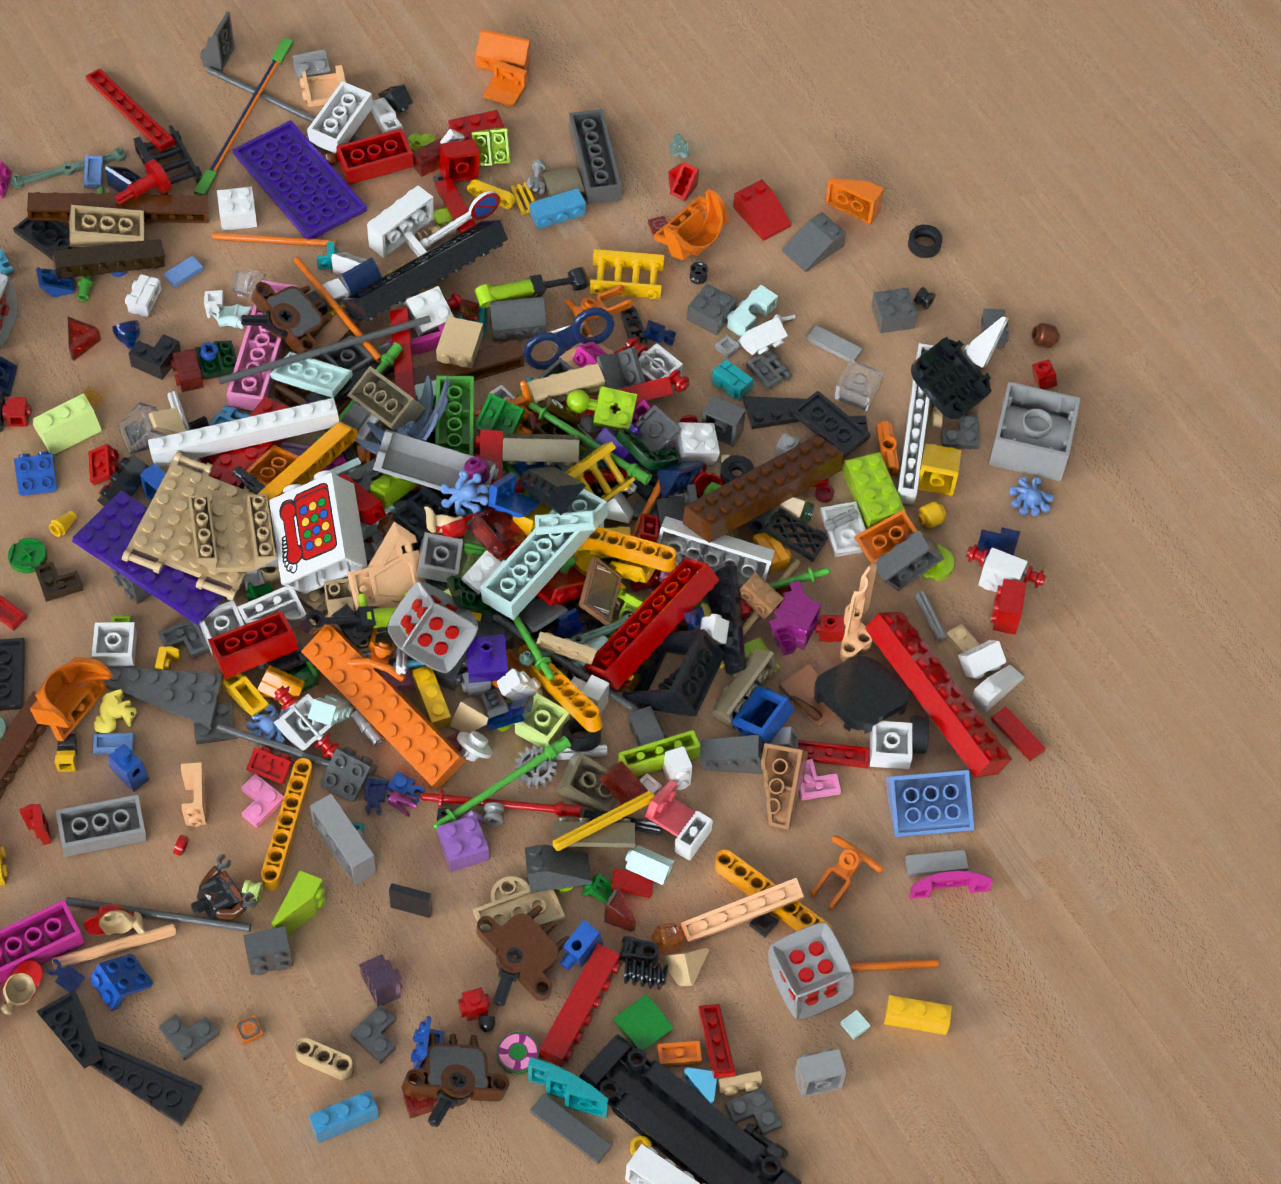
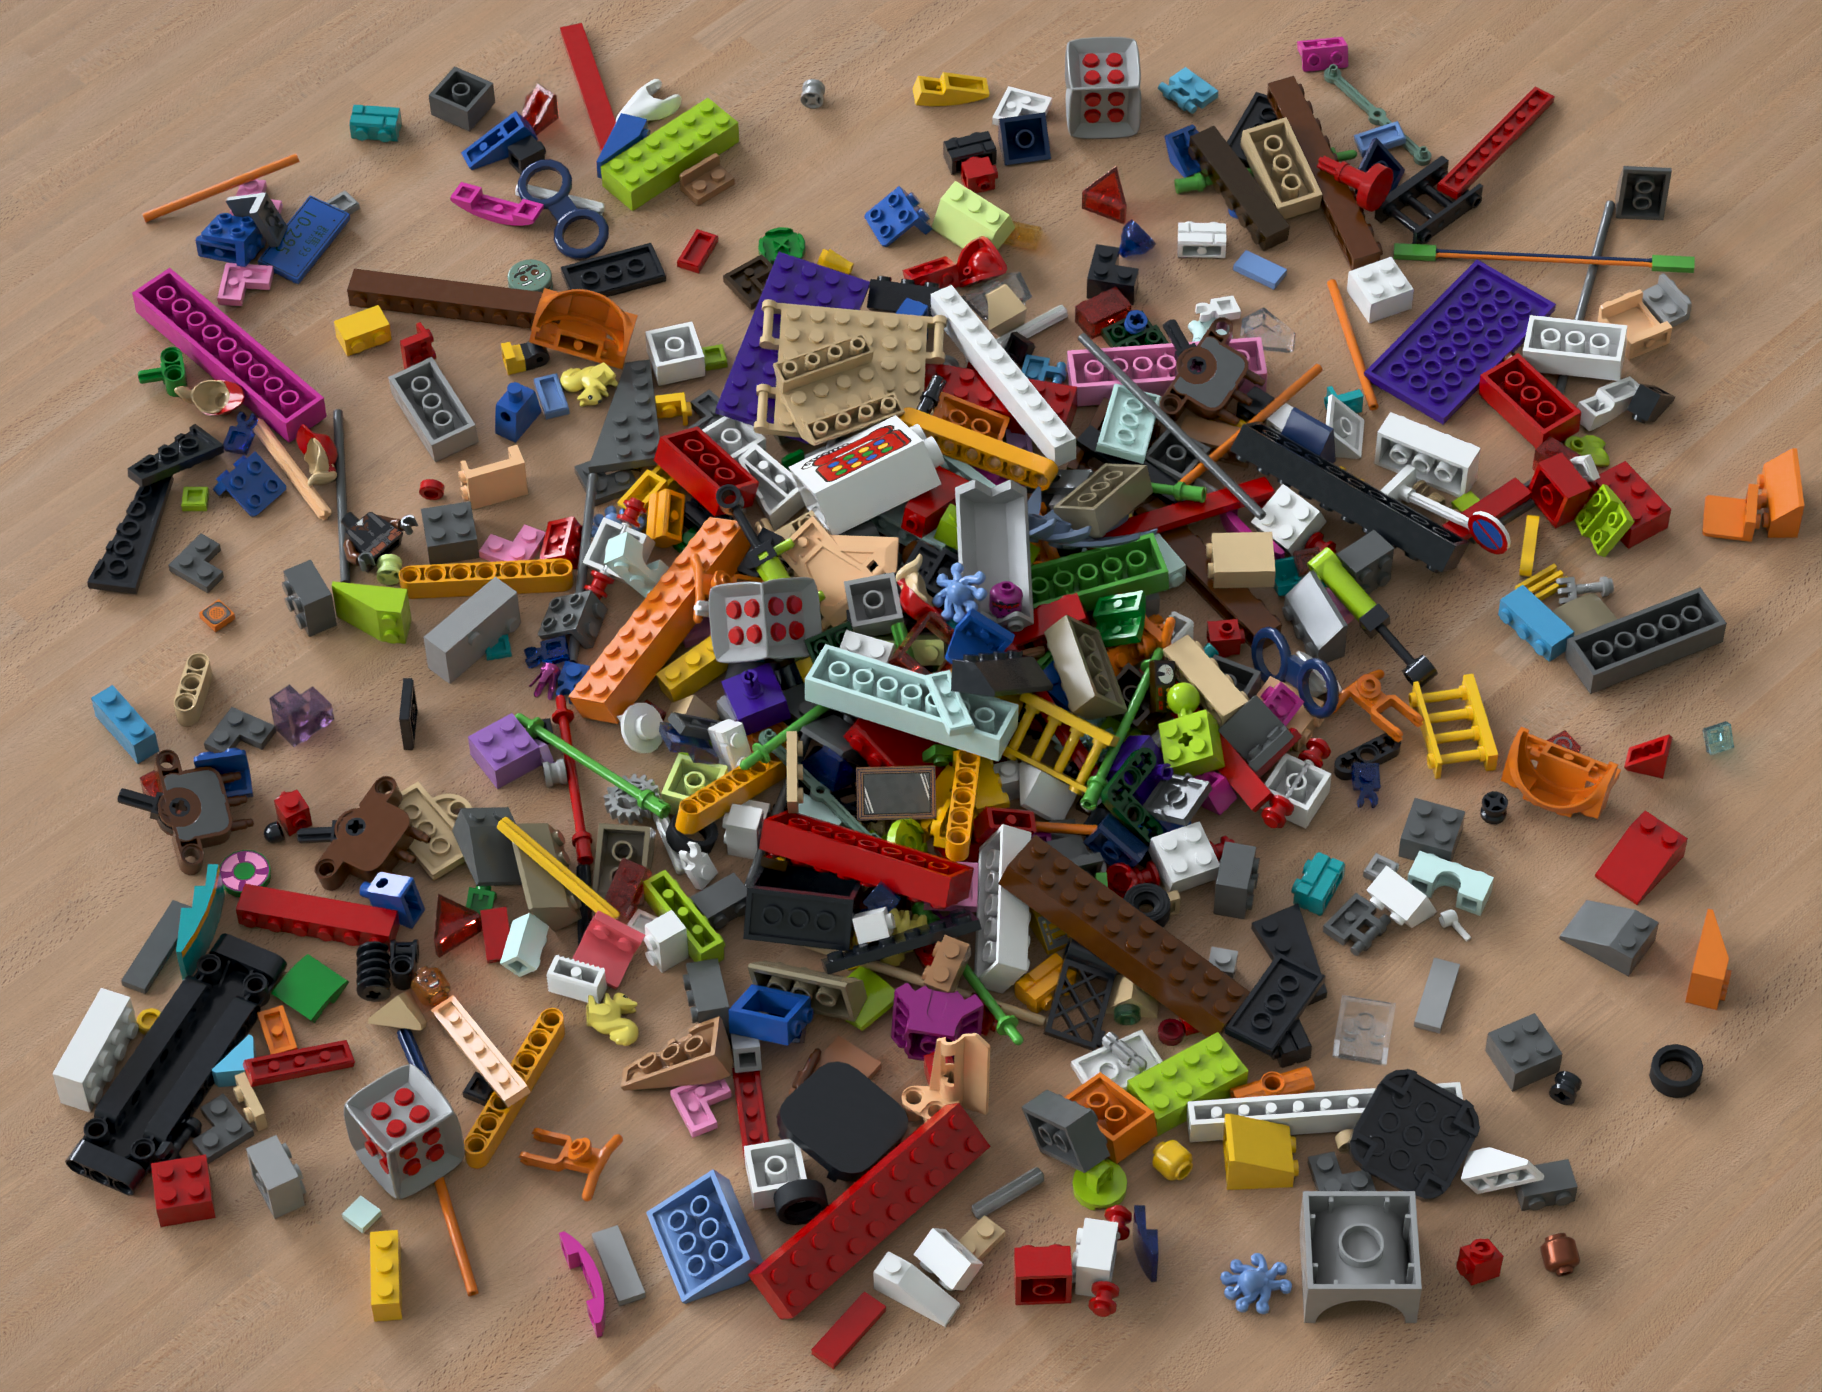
camera: 80 degrees right, 5 degrees down
(110, 428) = (979, 262): none -> red hat
(116, 1026) = (195, 499): none -> lime tile
(234, 838) = (450, 533): none -> dark grey brick
(481, 272) = (1368, 561): none -> dark grey brick
(513, 375) = (1225, 636): none -> red brick
(613, 735) = (699, 867): none -> white plate
(727, 826) = (607, 1018): none -> light yellow animal
(730, 961) = (412, 1050): none -> dark blue axle
(811, 1145) = (183, 1190): none -> red brick

